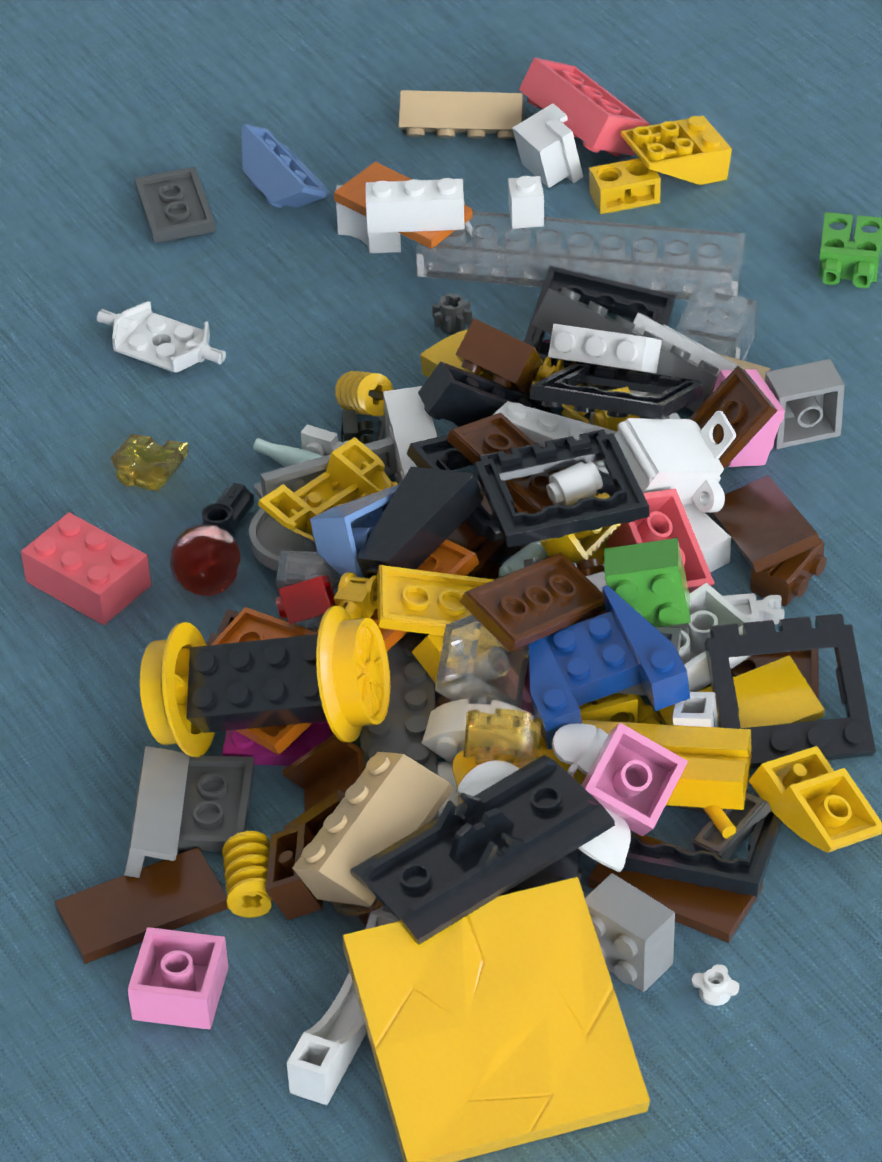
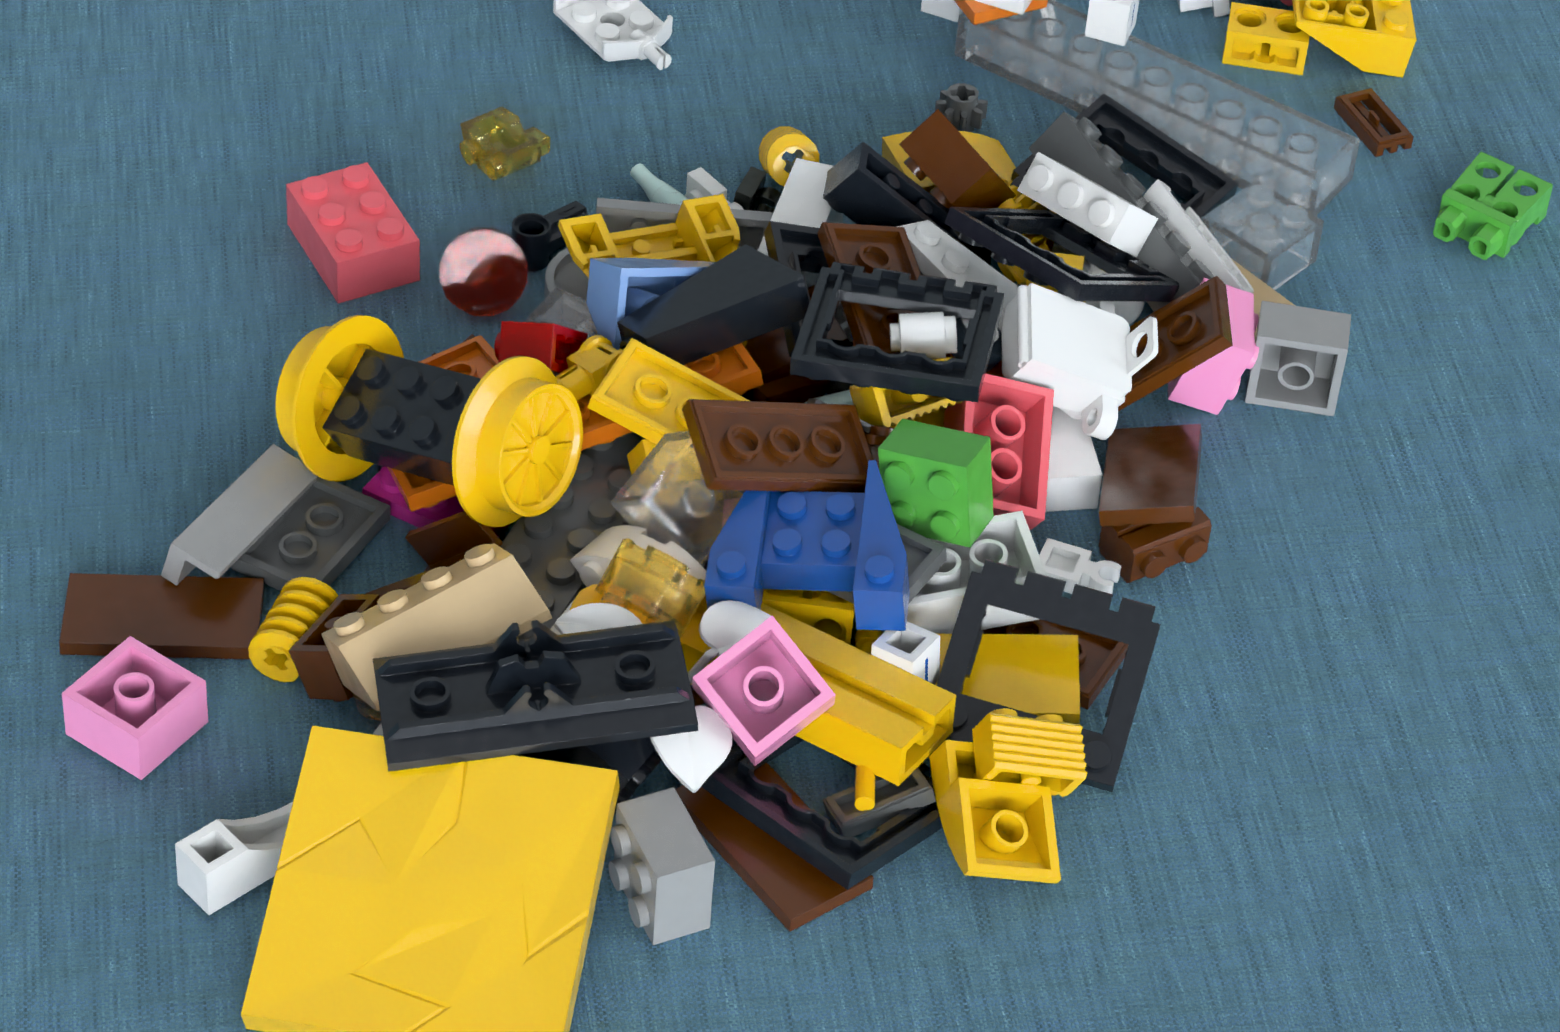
camera: 20 degrees right, 0 degrees up
(715, 985) = (735, 971): white plate -> none
(730, 217) = (1367, 125): none -> reddish brown tile
(821, 748) = (1029, 751): none -> yellow brick

